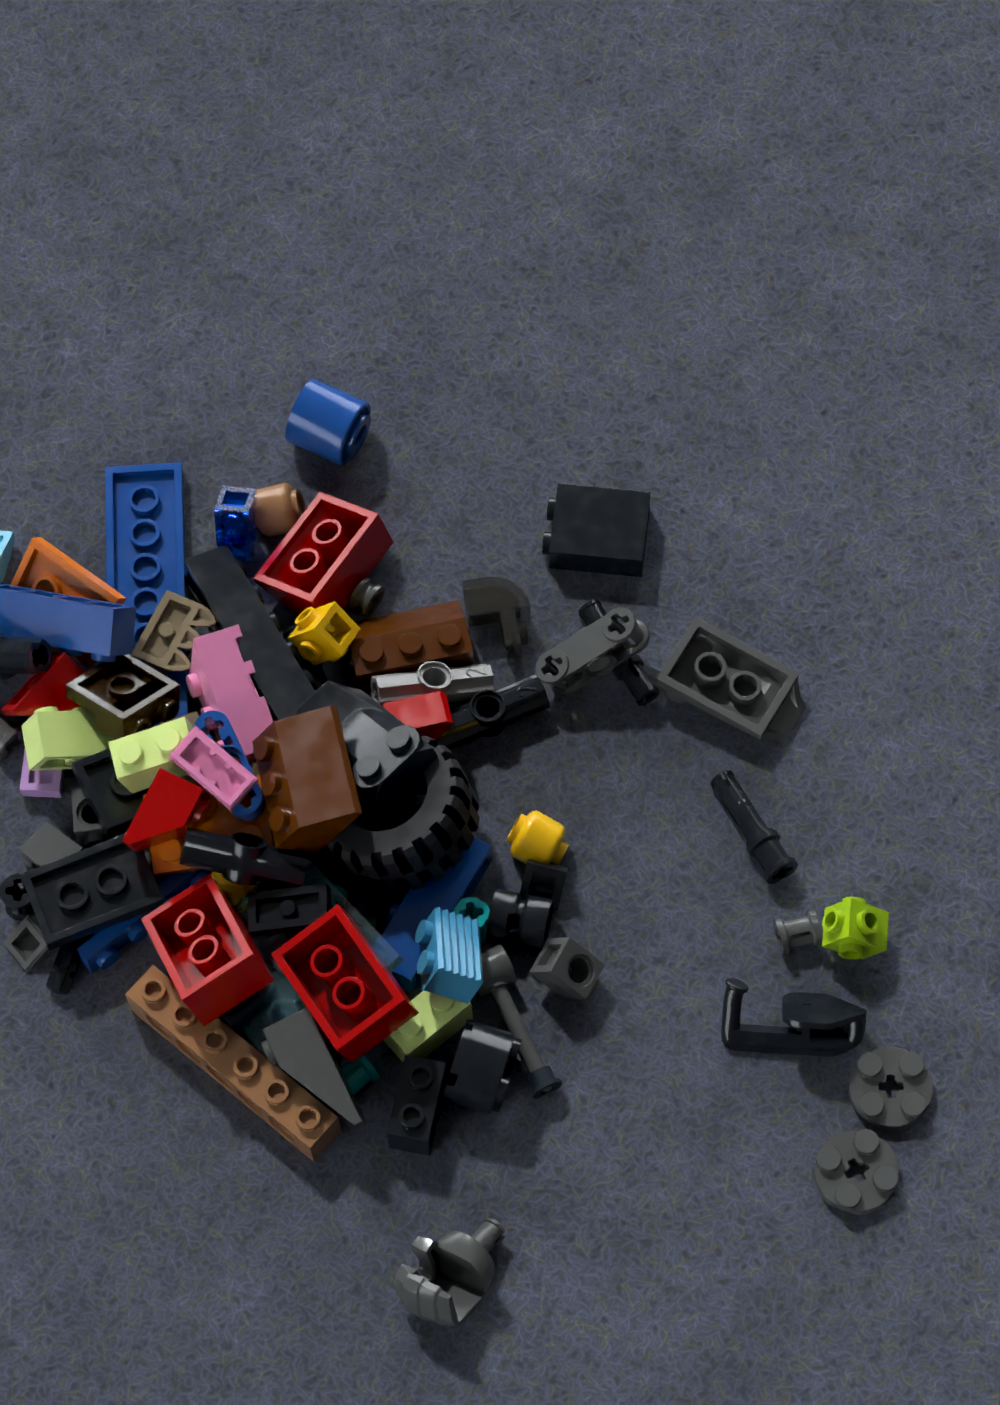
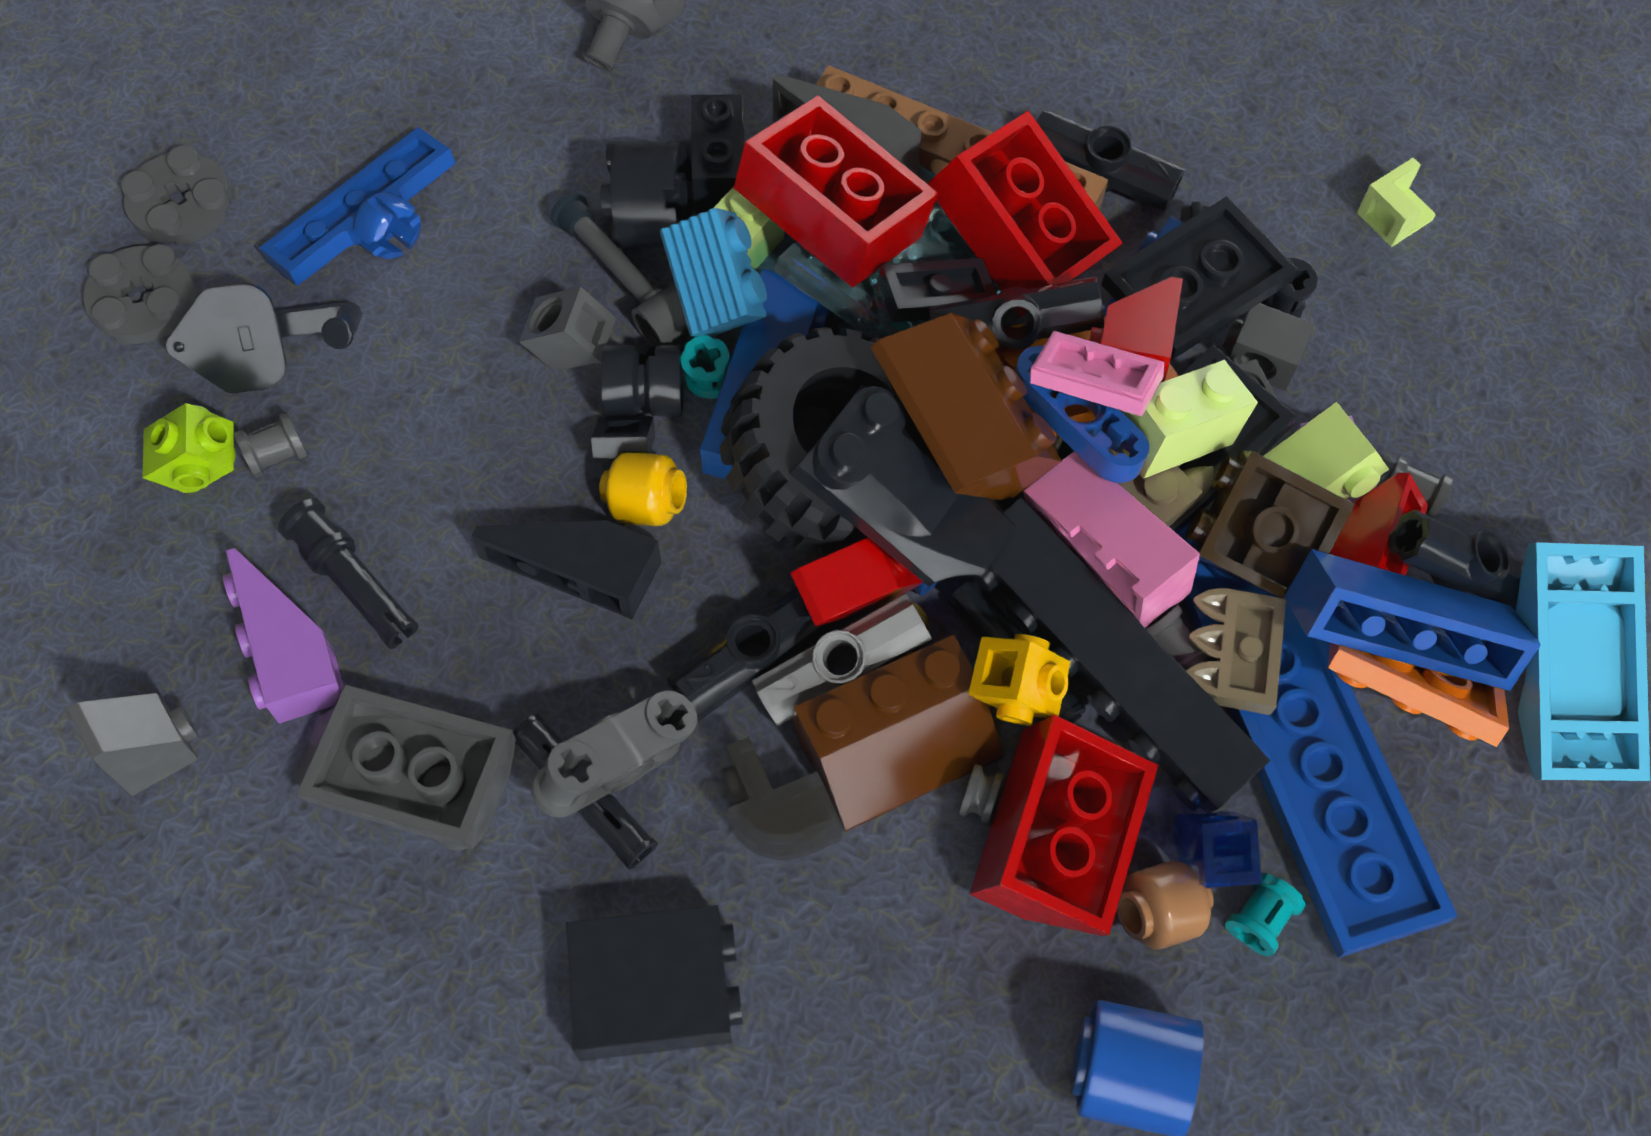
camera: 160 degrees right, 0 degrees up
(96, 1023) = (1110, 154): none -> black piece
(208, 496) = (1265, 914): none -> teal bush
(589, 798) = (582, 558): none -> black slope
(707, 1120) = (363, 210): none -> blue plate
(796, 777) = (289, 650): none -> medium lavender slope
(898, 727) = (135, 738): none -> dark grey slope

